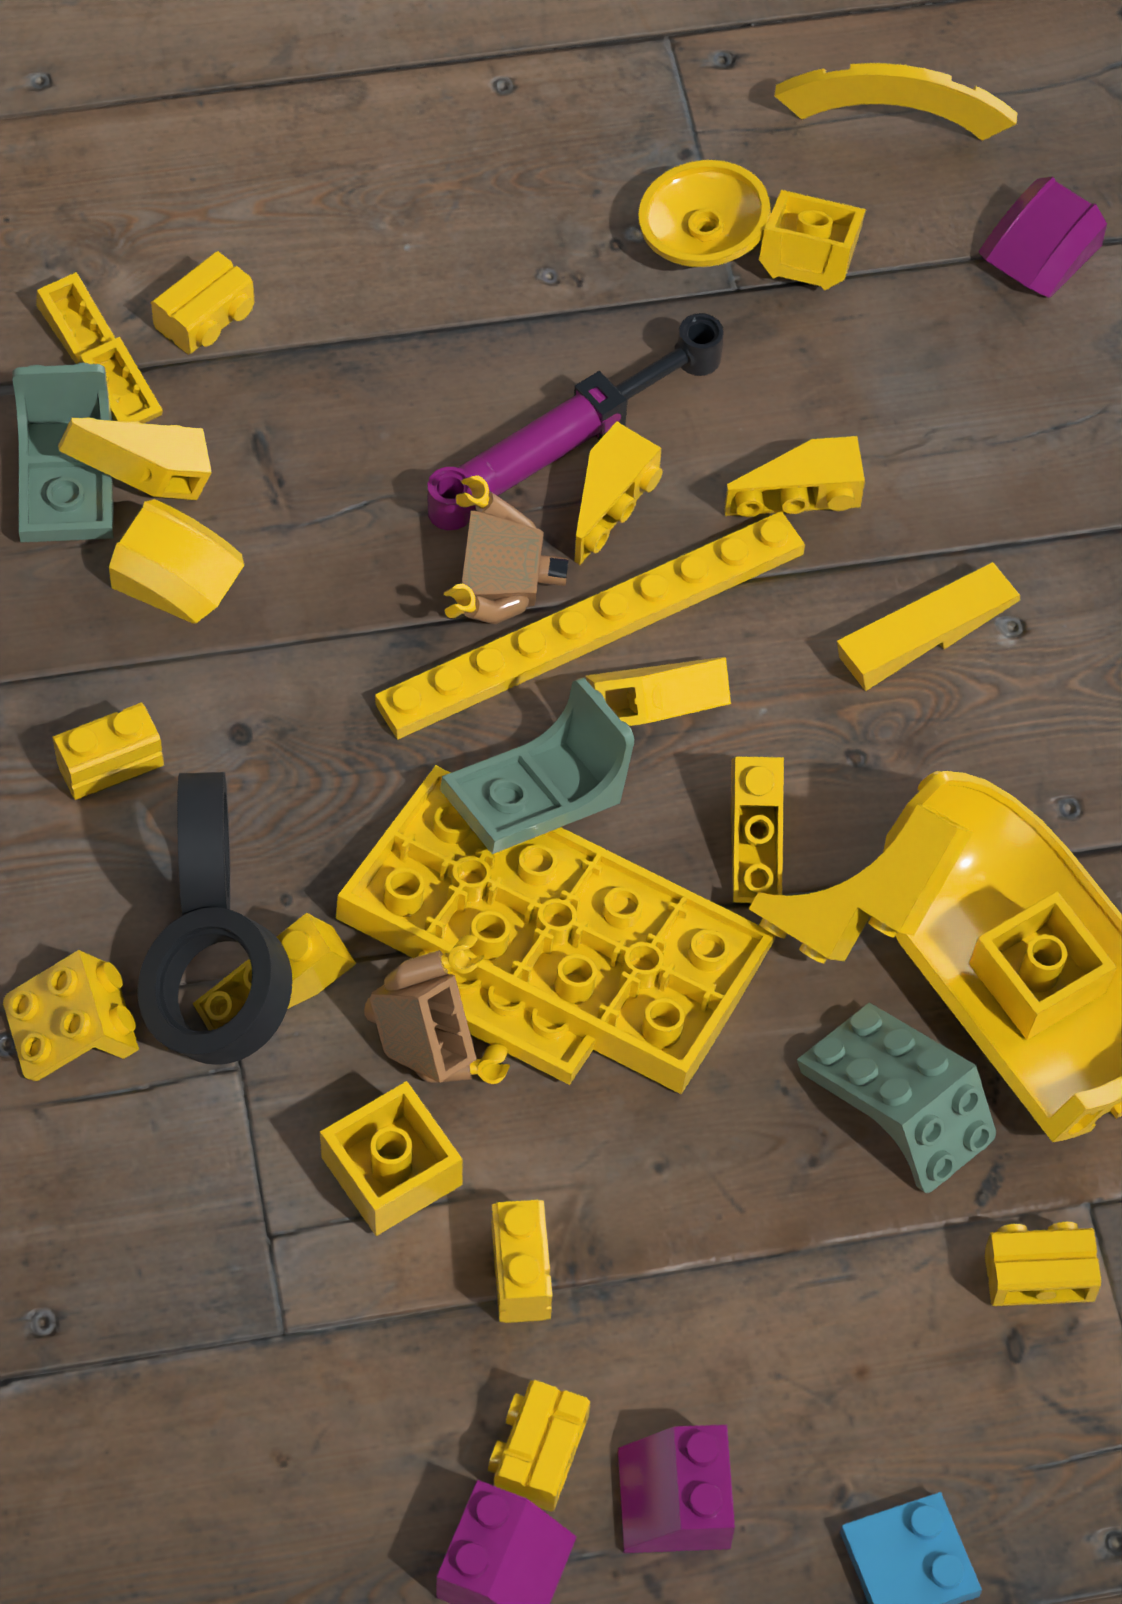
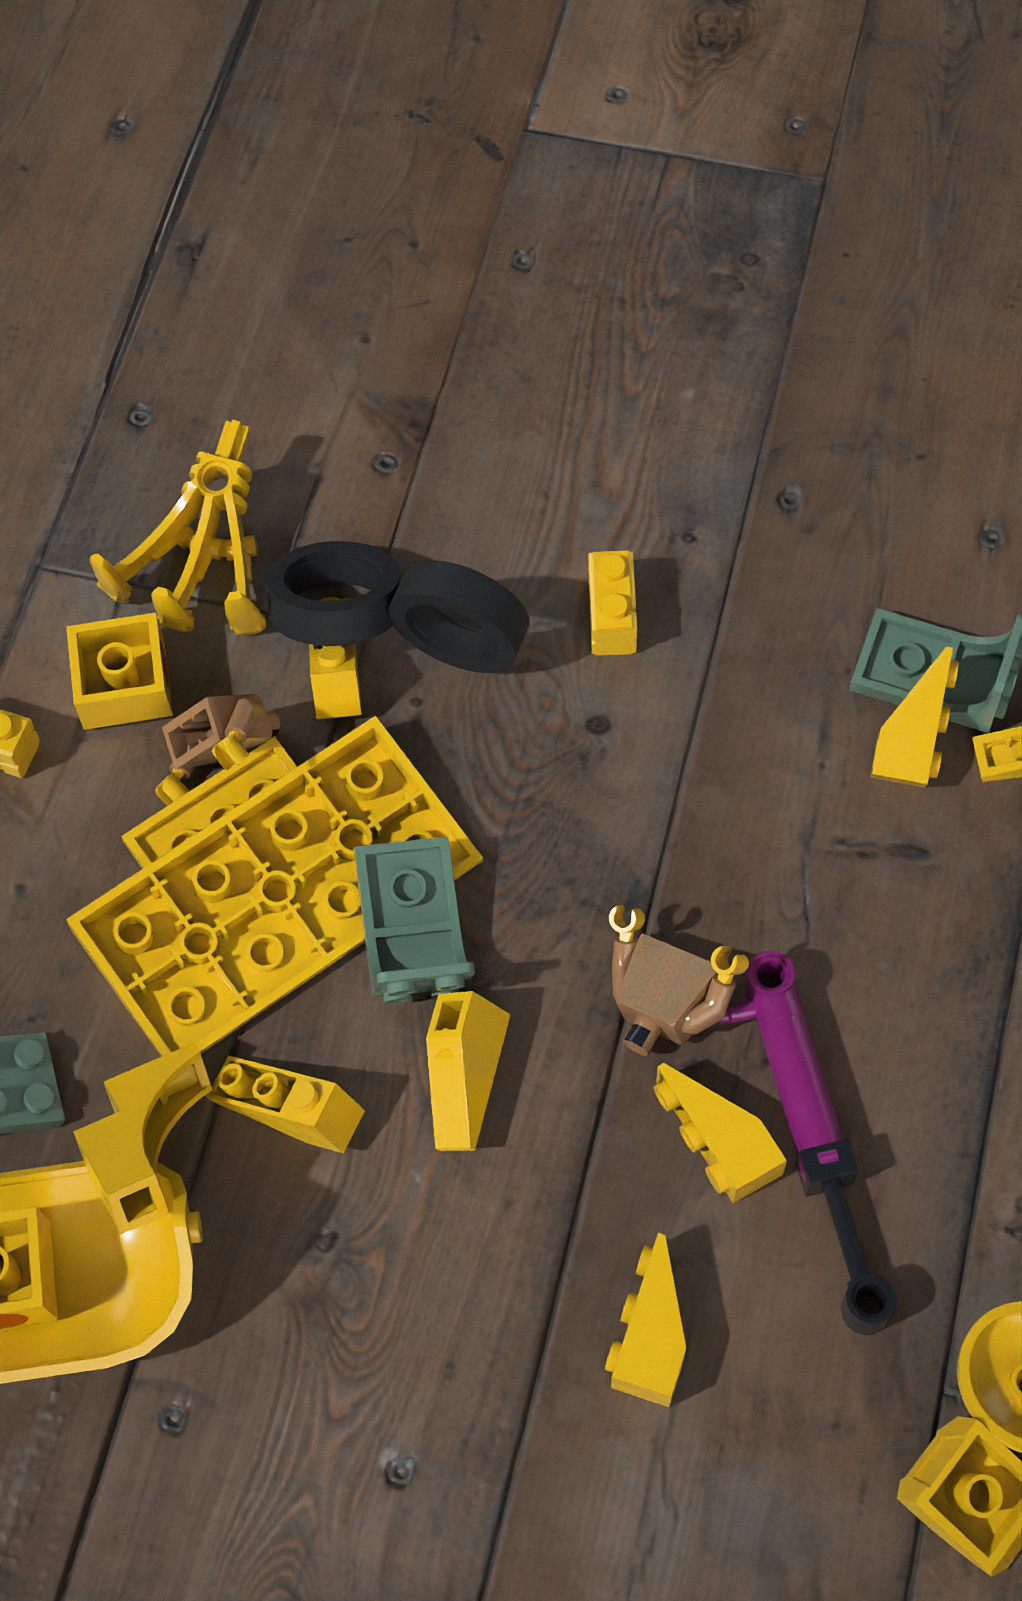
camera: 120 degrees right, 5 degrees up
(69, 1013) = (375, 504): yellow bracket -> none
(174, 563) = (797, 726): yellow slope -> none
(176, 1159) = (203, 545): none -> yellow piece
(588, 625) = (580, 1072): yellow plate -> none
(933, 620) = (428, 1373): yellow slope -> none

